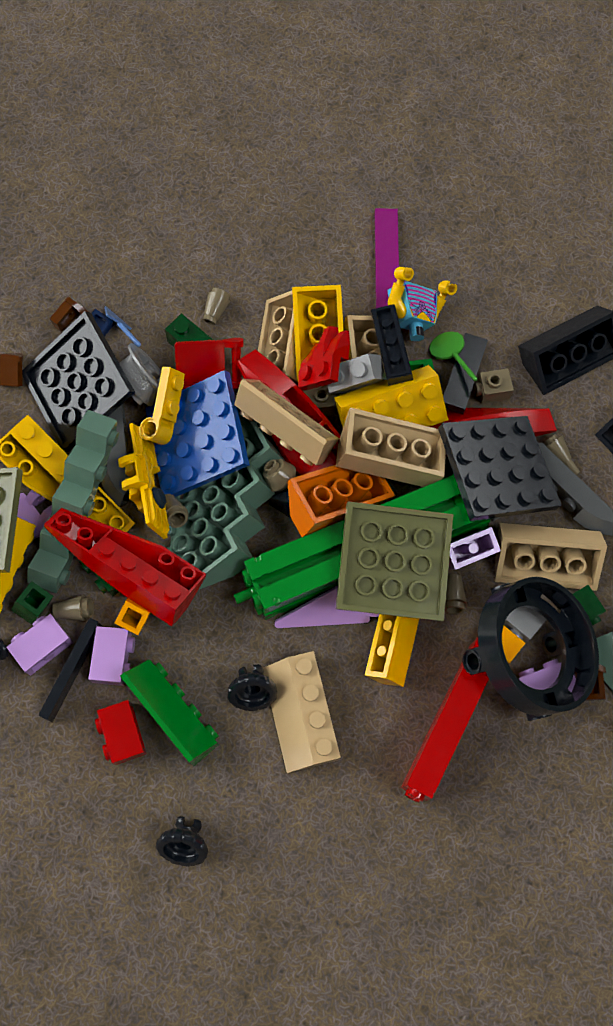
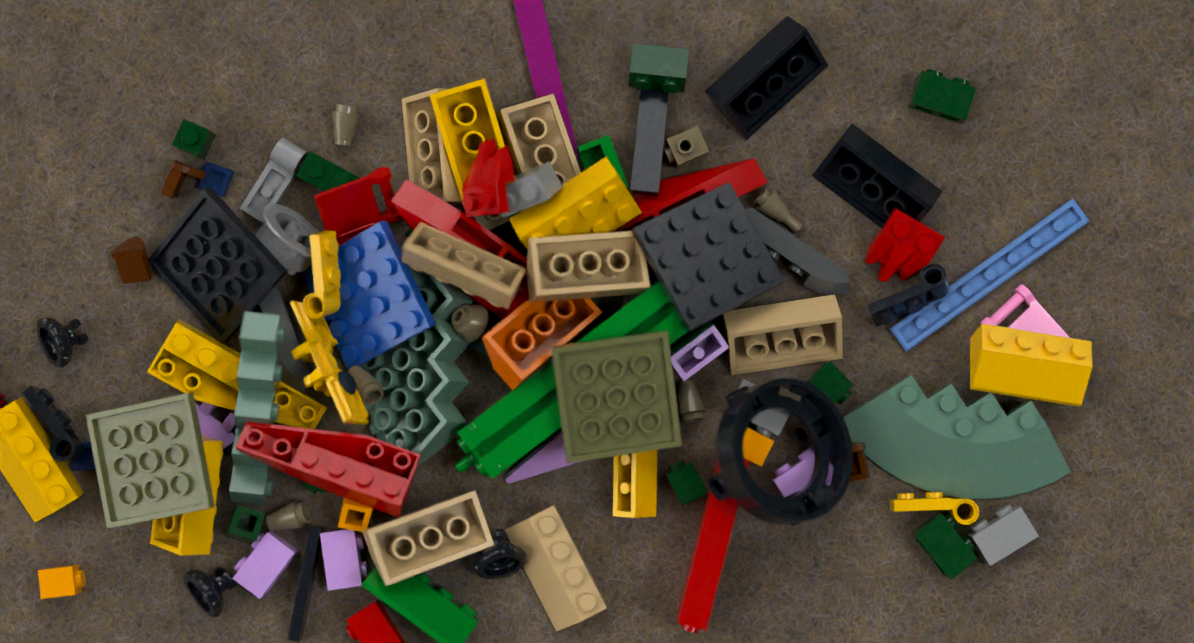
camera: 10 degrees left, 15 degrees up
(90, 288) = (194, 139): none -> dark green brick
(122, 325) = (232, 168): medium blue piece -> none
(148, 332) = (275, 179): none -> light grey plate
(192, 650) = (428, 537): none -> tan slope
(391, 345) = (558, 141): black tile -> none
(417, 305) = (577, 71): torso -> none
(437, 662) = (686, 481): none -> dark green brick
(448, 346) = (624, 109): bright green piece -> none
(483, 320) = (658, 68): none -> dark green brick

